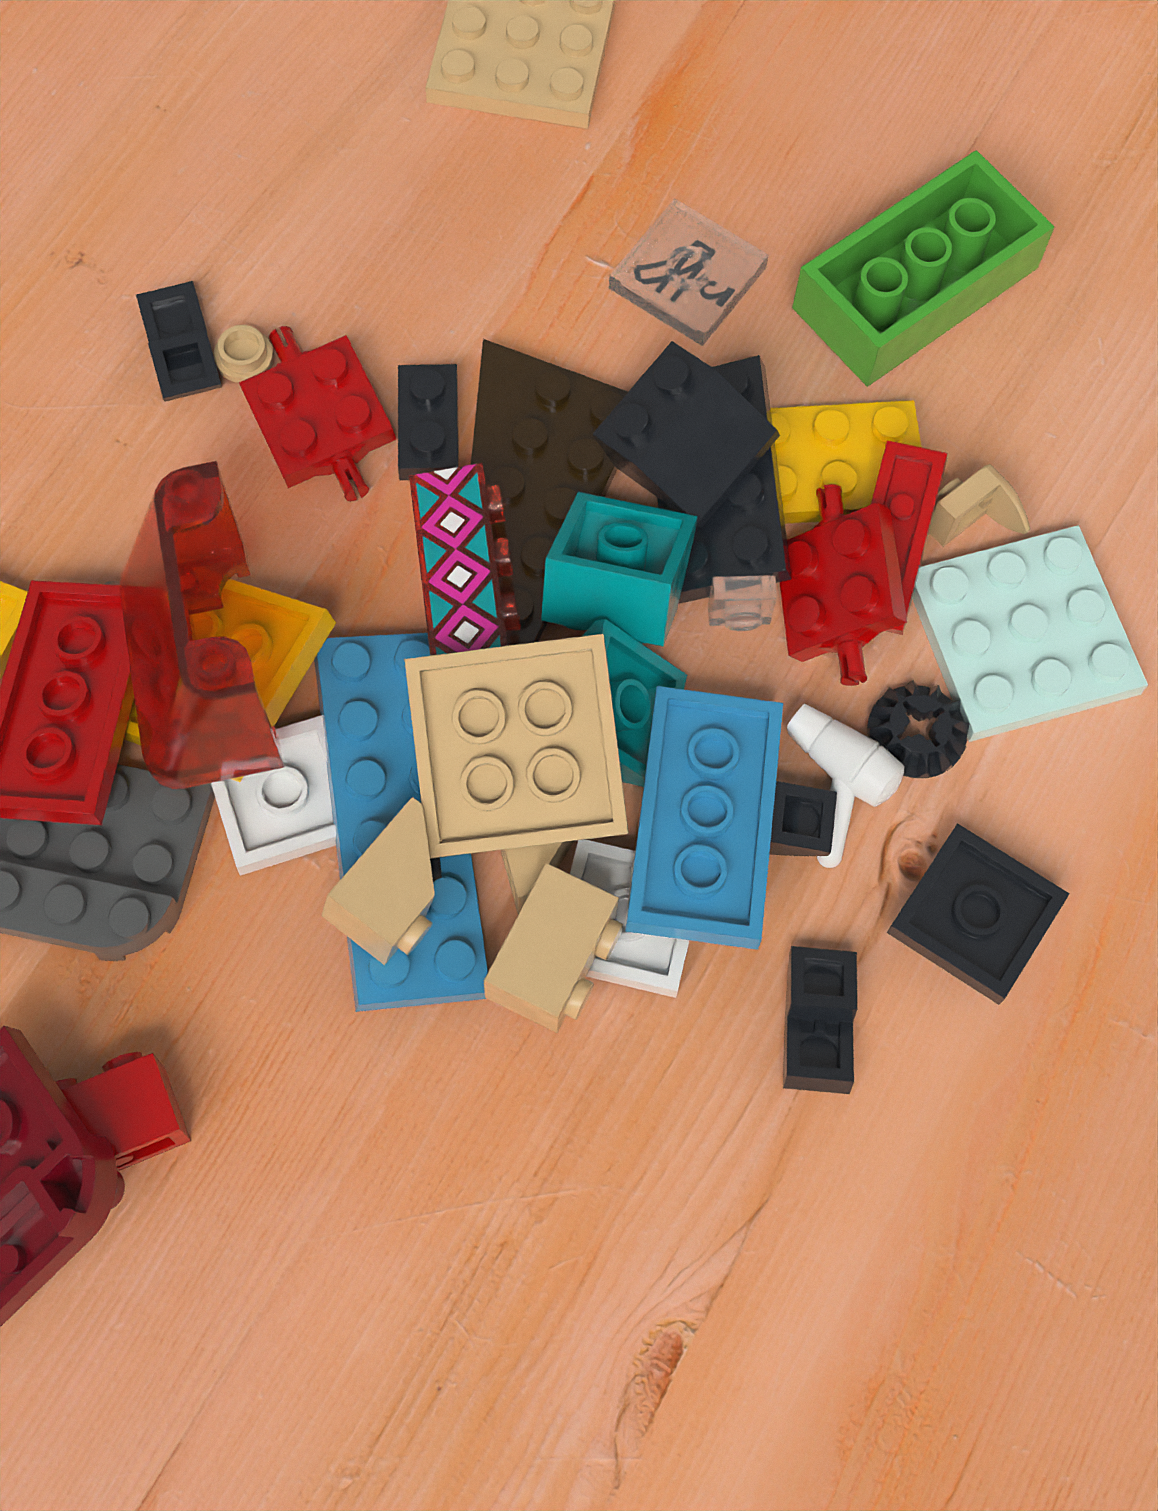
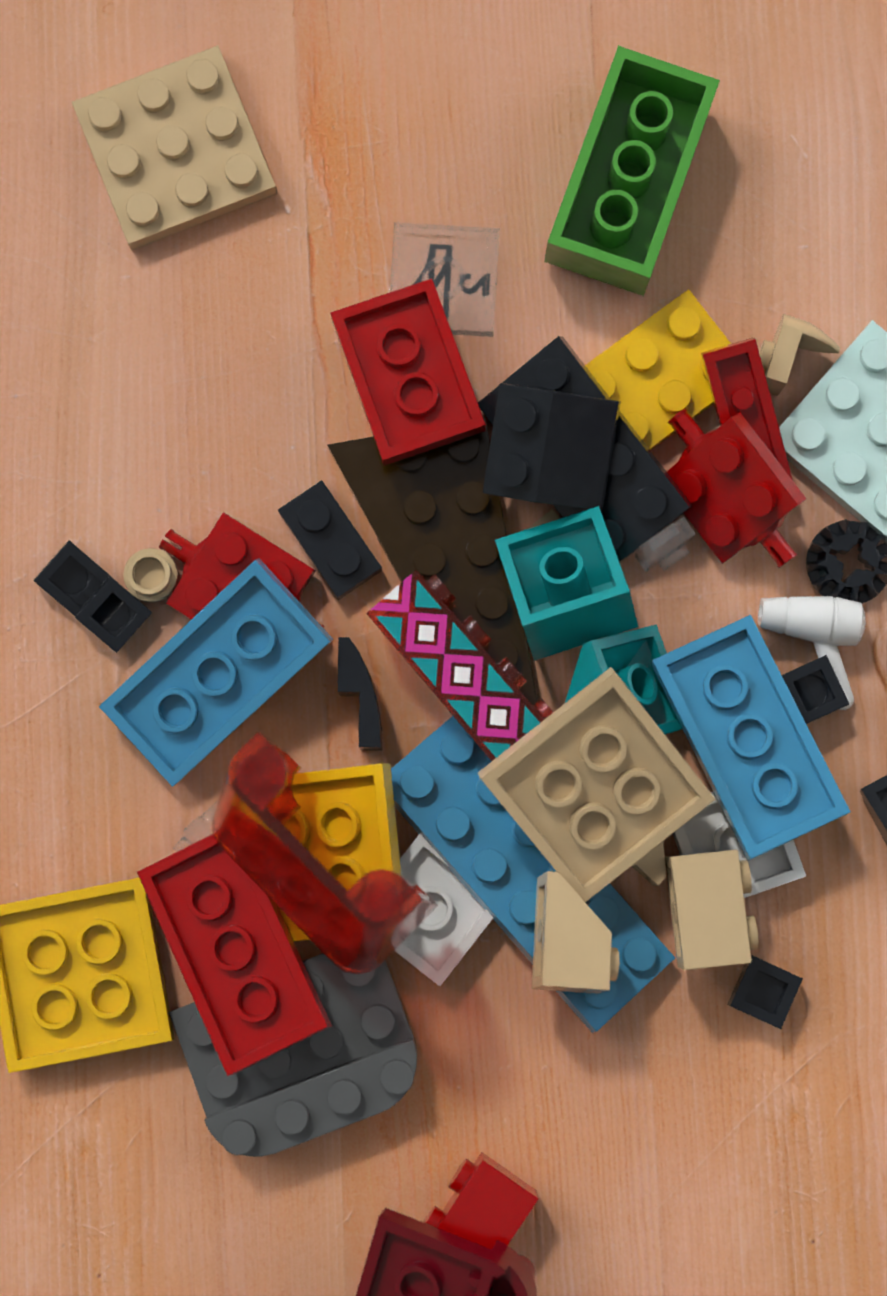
camera: 30 degrees left, 15 degrees up
(270, 444) = (216, 672): none -> dark azure plate
(359, 552) = (356, 682): none -> black slope
(559, 1083) = (765, 992): none -> black plate
(597, 310) = (408, 372): none -> red plate

